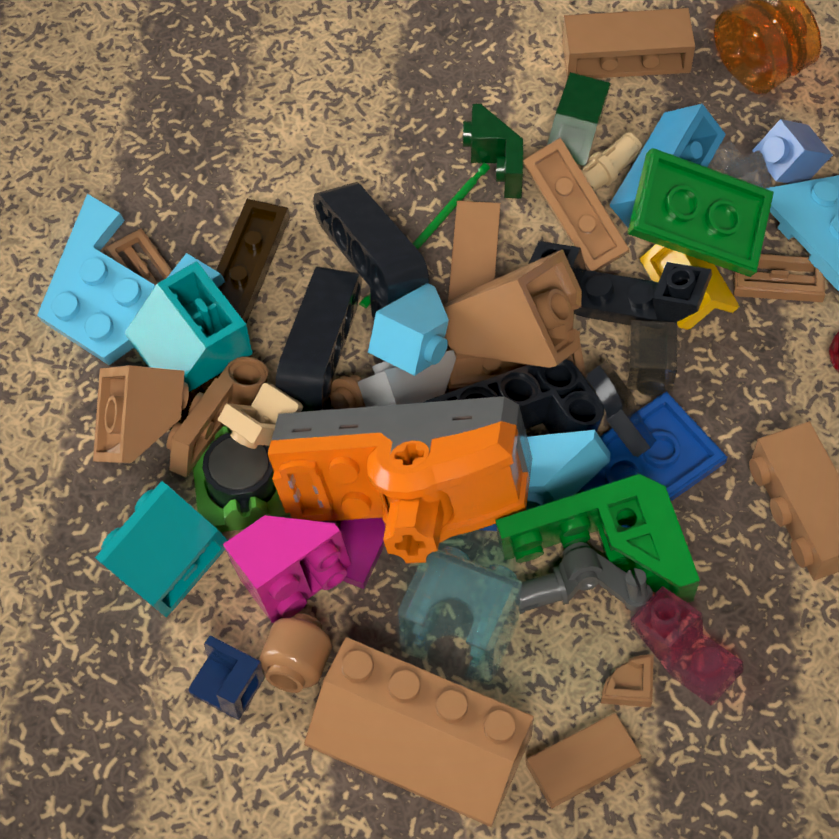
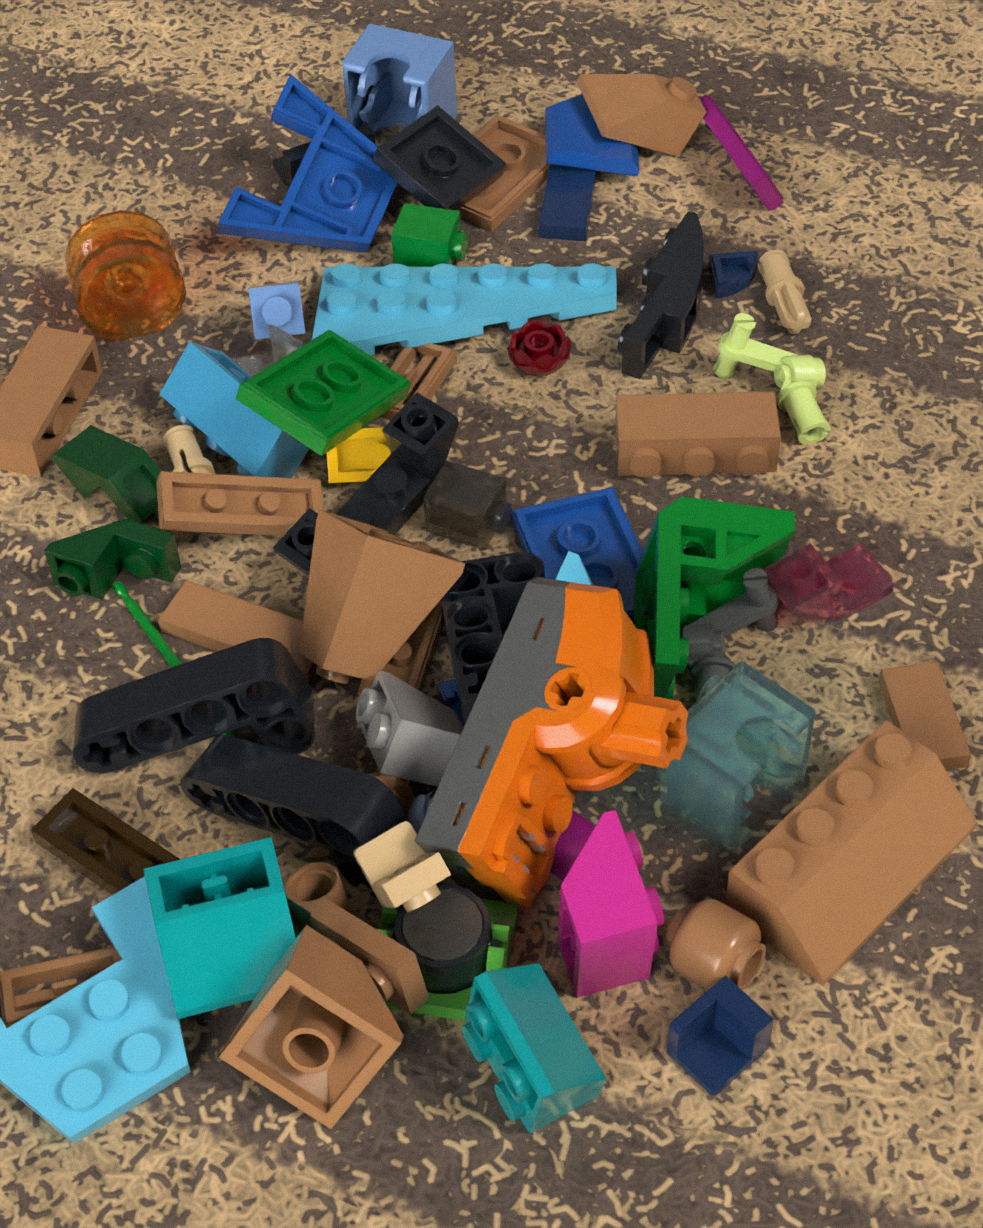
camera: 70 degrees left, 10 degrees down
(411, 331) = (358, 677): medium azure slope -> none
(620, 409) = (541, 540): black tile -> none
(631, 683) = (846, 650): medium nougat tile -> none

